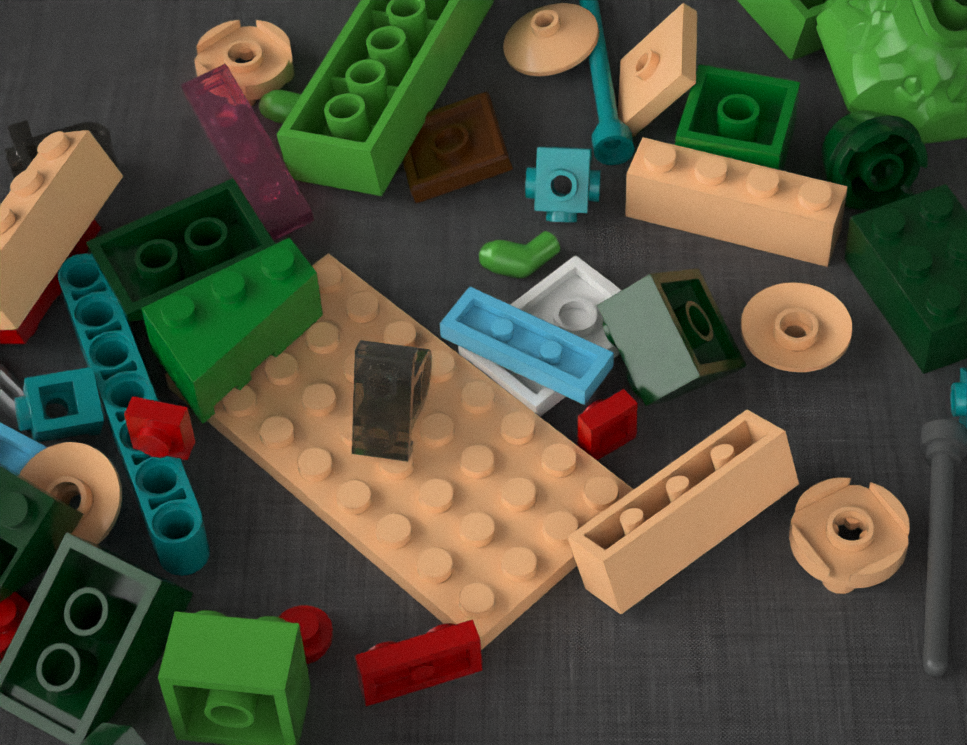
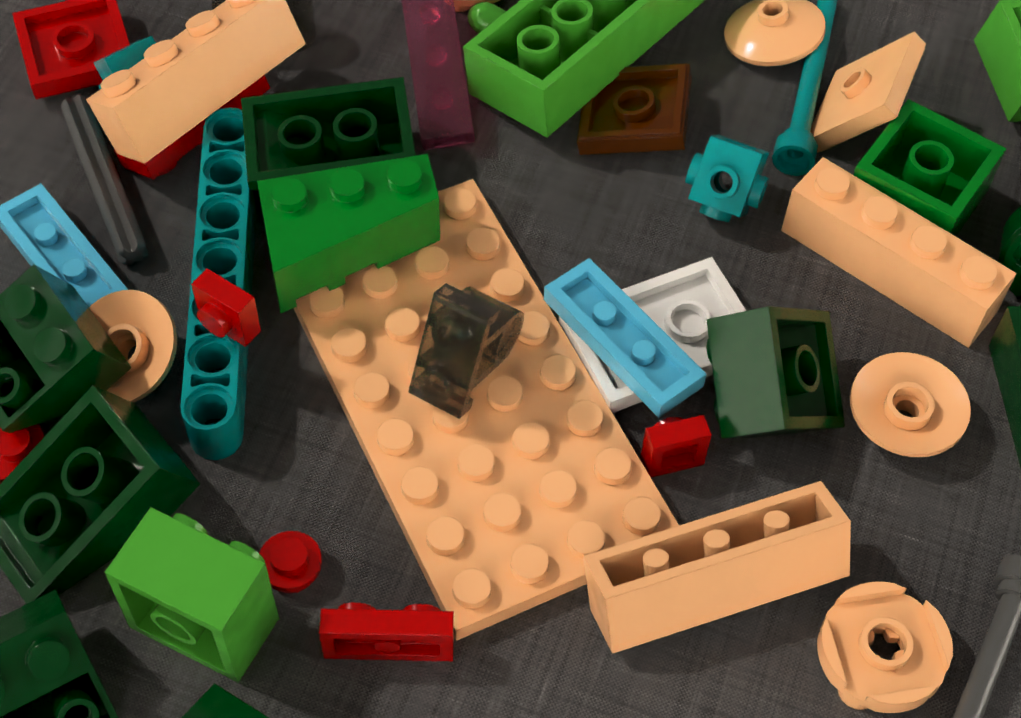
camera: 15 degrees right, 5 degrees up
(71, 389) = (140, 233): teal brick -> none
(518, 259) = (656, 242): bright green arm -> none

